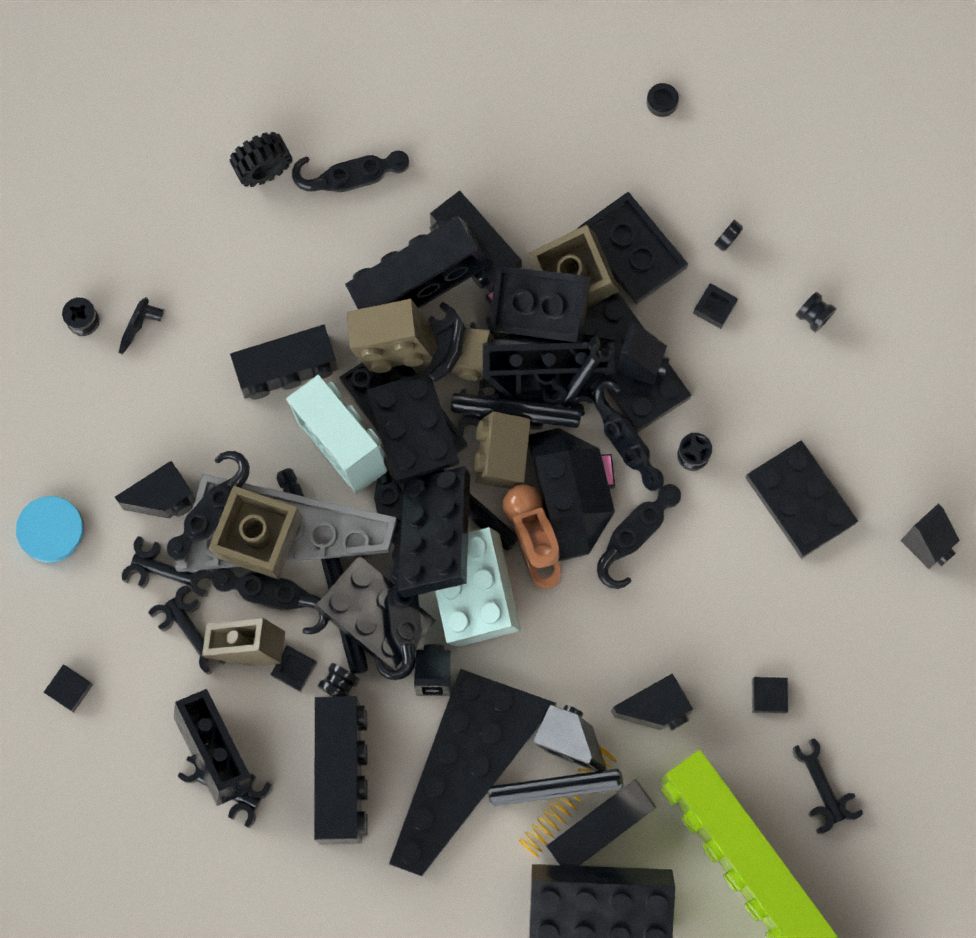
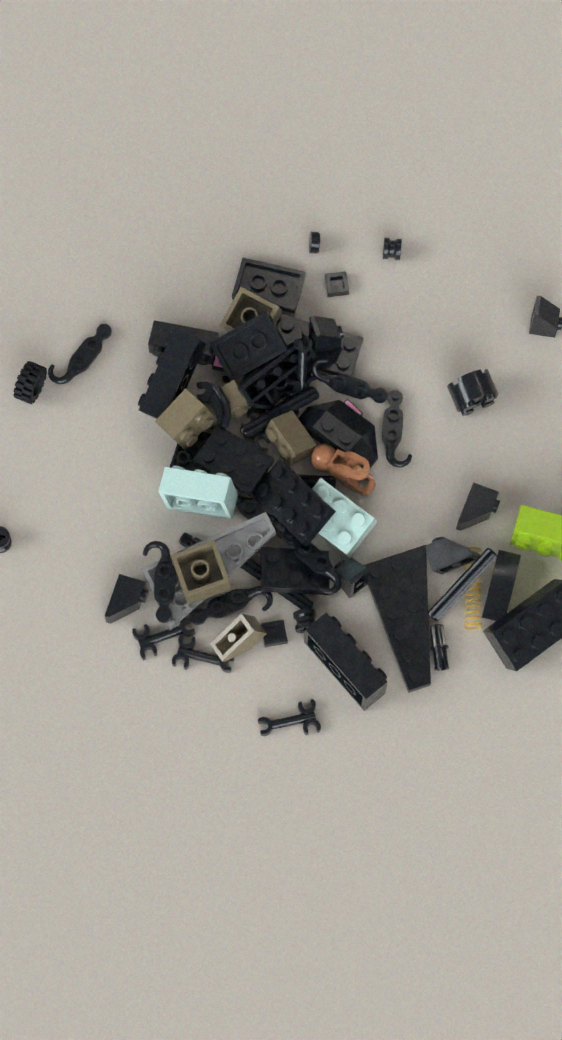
camera: 40 degrees left, 5 degrees down
(49, 529) = (79, 663): medium azure tile -> none
(68, 688) = (162, 736): black tile -> none
(142, 311) = (32, 520): black bar -> none
(212, 747) = (269, 701): black brick -> none
(284, 362) = (134, 480): black brick -> none
(468, 840) = (439, 647): none -> black axle
(662, 99) = (218, 197): black tile -> none
(698, 446) = (389, 360): black wheel -> none
(766, 560) = (472, 391): none -> black brick
(769, 695) = (528, 459): black tile -> none
(801, 499) = (462, 348): black plate -> none

